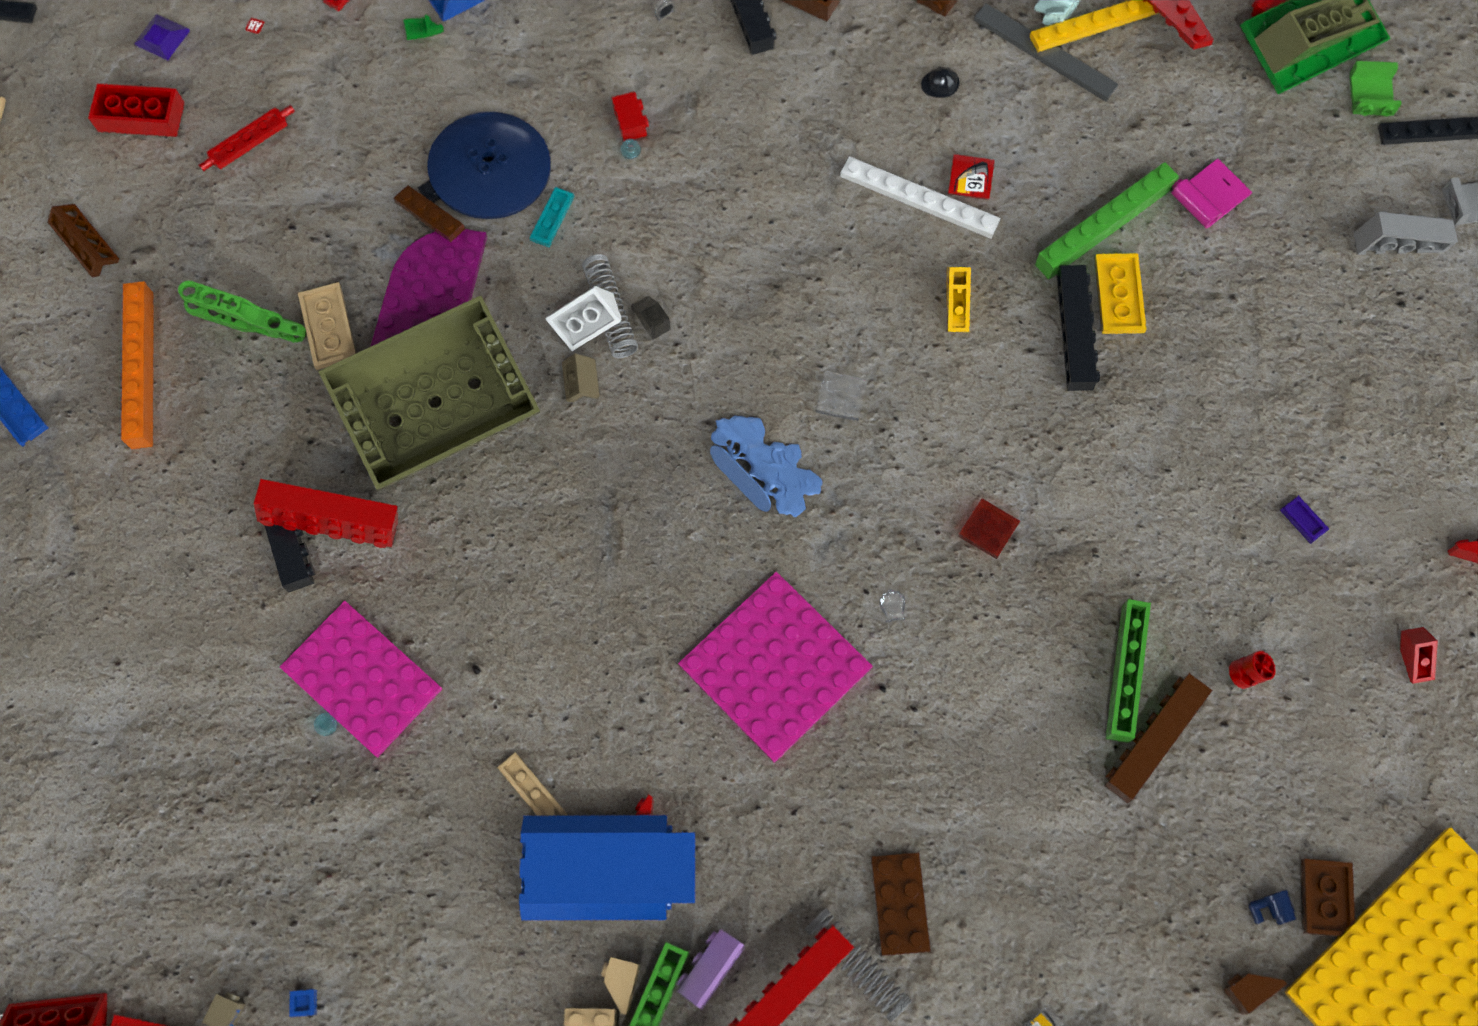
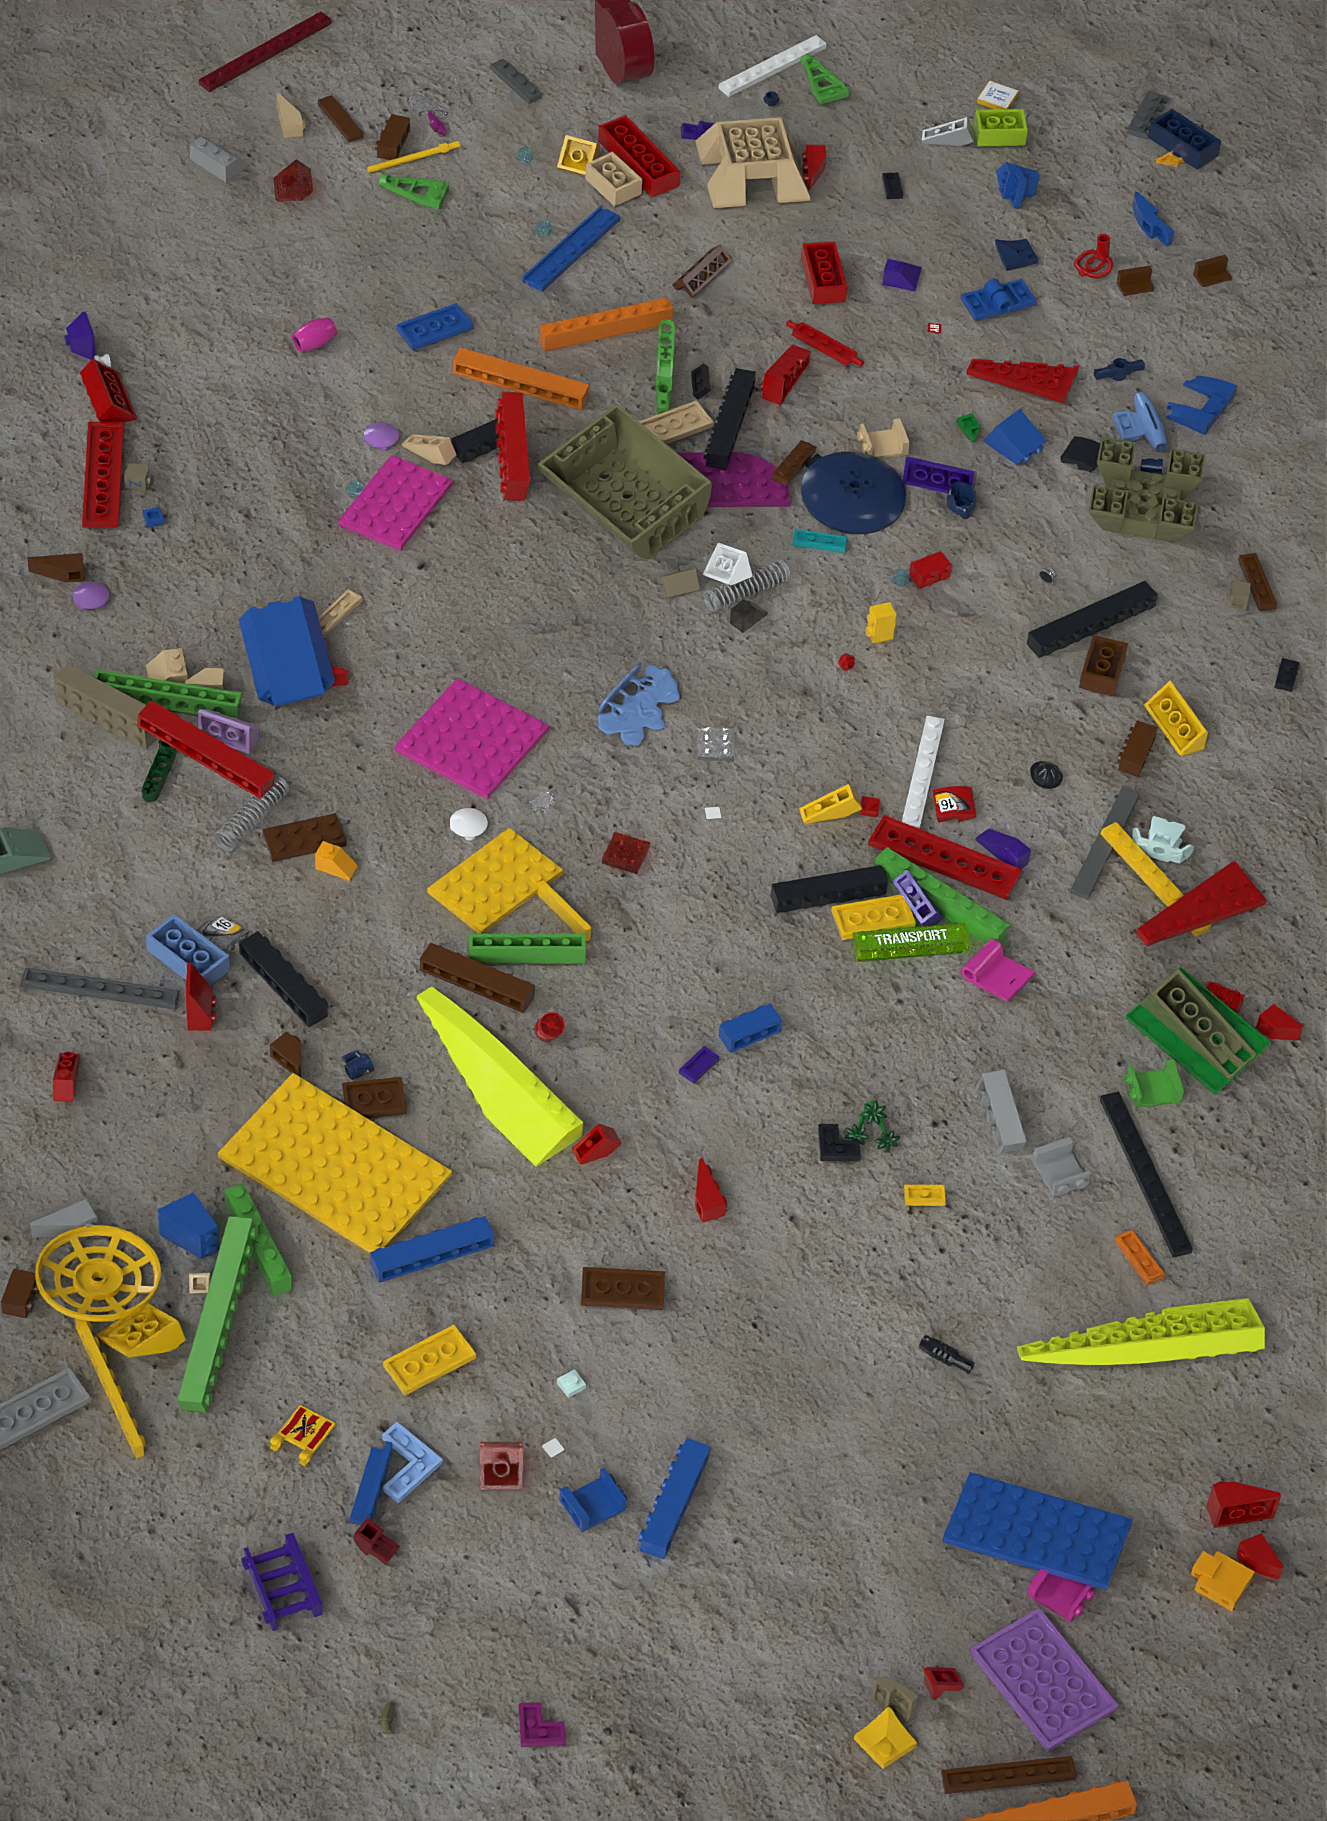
camera: 70 degrees right, 20 degrees down
(36, 722) = (314, 334): none -> dark pink piece
(70, 568) = (434, 326): none -> blue plate
(196, 483) = (520, 378): none -> orange brick
(239, 672) = (381, 435): none -> medium lavender dish
(266, 281) = (700, 381): none -> black plate
(284, 615) = (432, 448): none -> tan slope
(285, 188) = (784, 374): none -> red wedge
(343, 262) = (730, 419): none -> black brick
(418, 114) = (886, 442): none -> tan panel
(493, 72) = (935, 475): none -> dark purple slope
(534, 59) = (961, 499): none -> dark blue hair
(705, 180) = (881, 622): none -> yellow brick
(746, 231) = (846, 661): none -> red plate
(911, 697) = (468, 823): none -> white dish
(937, 422) = (712, 812): none -> white sticker
(952, 873) = (334, 861): none -> light orange slope
(958, 258) = (869, 806): none -> red plate
(1006, 686) = (494, 881): none -> yellow plate
(1043, 144) = (1005, 848): none -> dark purple slope
(1048, 216) = (948, 867): none -> red plate
(1069, 615) = (563, 910): none -> yellow tile
(1118, 241) = (918, 899): none -> slope
(1133, 975) = (283, 979): none -> black brick
(1162, 266) = (910, 942): none -> clear neon green brick
(1264, 453) = (750, 1028): none -> blue brick
(1314, 747) = (502, 1084): none -> neon yellow wedge
(1393, 358) = (873, 1112): none -> dark green plant
(1434, 409) = (833, 1148): none -> black plate

